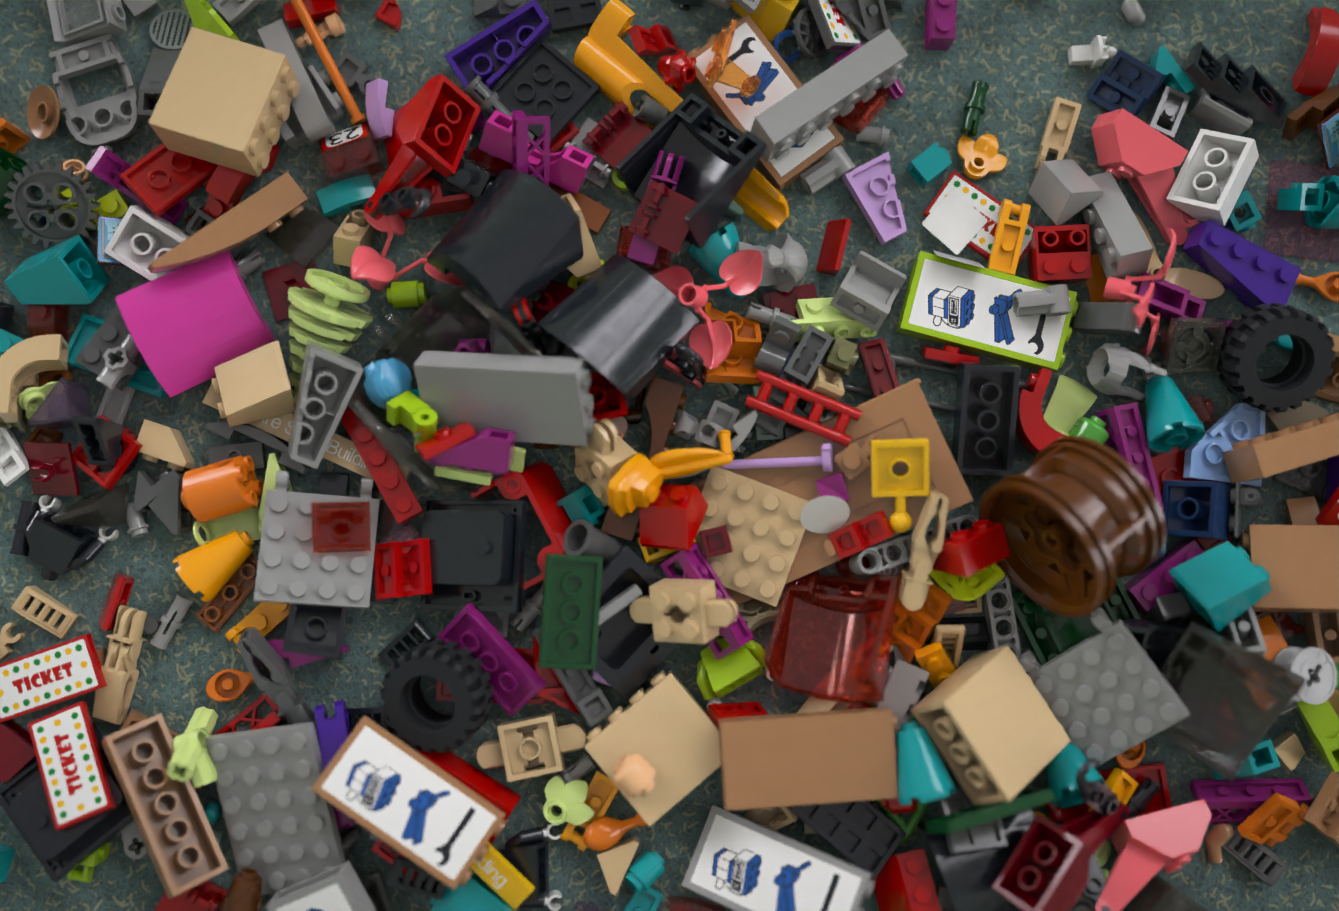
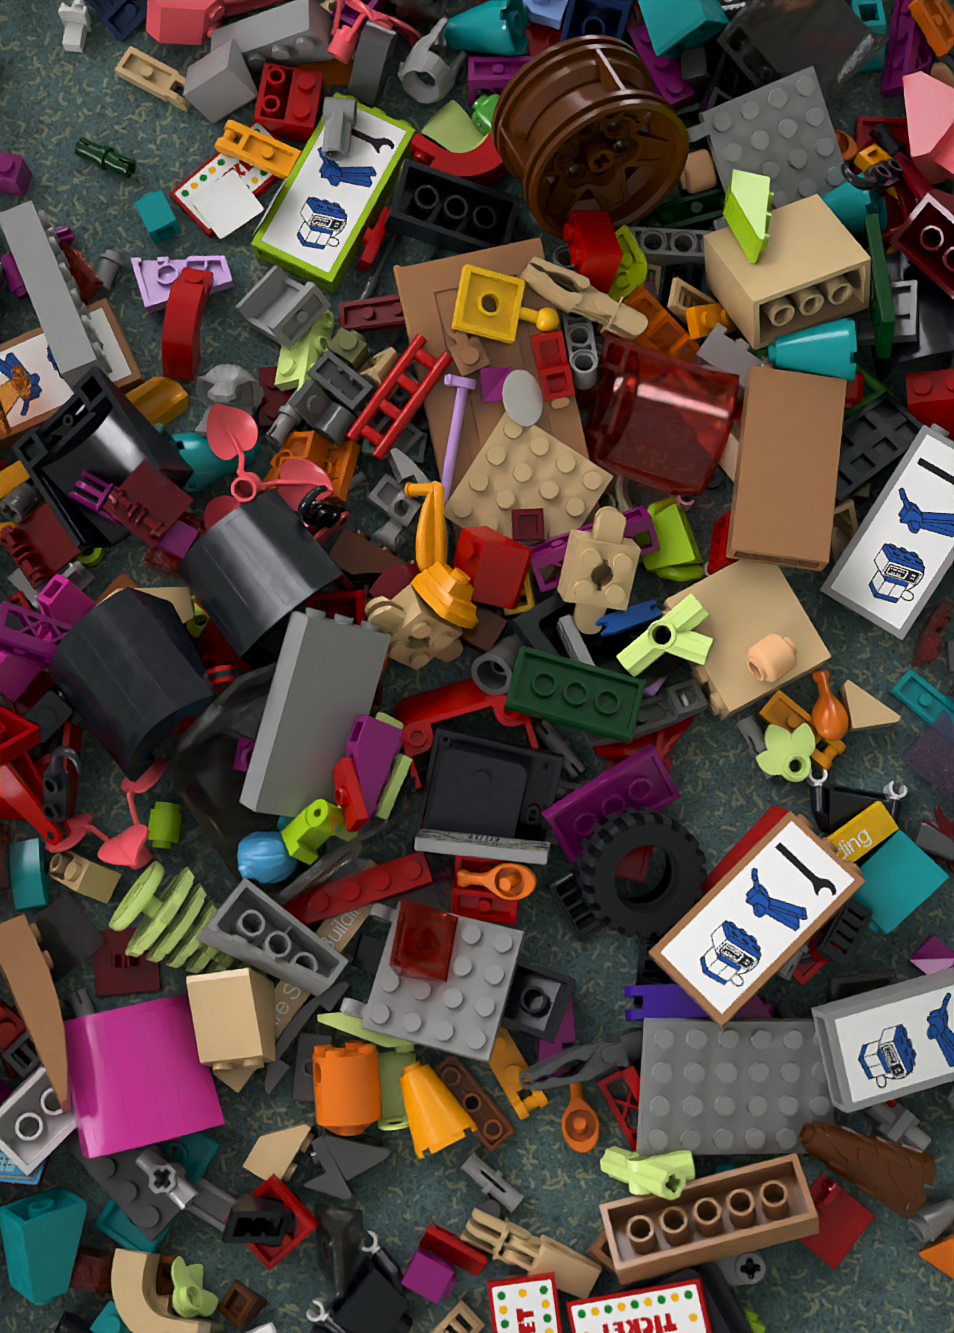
camera: 75 degrees left, 5 degrees down
(52, 468) = (276, 1295): dark red piece -> none
(61, 404) = (207, 1263): clear purple slope -> none
(86, 586) = (429, 1275): none -> magenta brick
(136, 523) = (369, 1203): light grey pin -> none
(405, 585) = (505, 880): none -> orange piece
(429, 559) = (482, 846): none -> light grey tile
(531, 746) = (717, 780): tan brick -> none
(582, 505) = (454, 668): teal brick -> none
(634, 696) = (683, 640): none -> yellowish green piece
(640, 438) = (394, 580): none -> dark red slope
(645, 871) = (879, 680): teal brick -> none
(652, 648) = (634, 616): none -> blue piece
(830, 168) = (134, 322): light grey piece -> none
(833, 246) = (226, 338): red slope -> none
(836, 209) = (183, 323): none -> red arch
(980, 152) = (160, 163): light orange plate -> none
(1033, 680) = (747, 212): none -> lime slope
(1073, 629) = (698, 172): none -> light nougat head

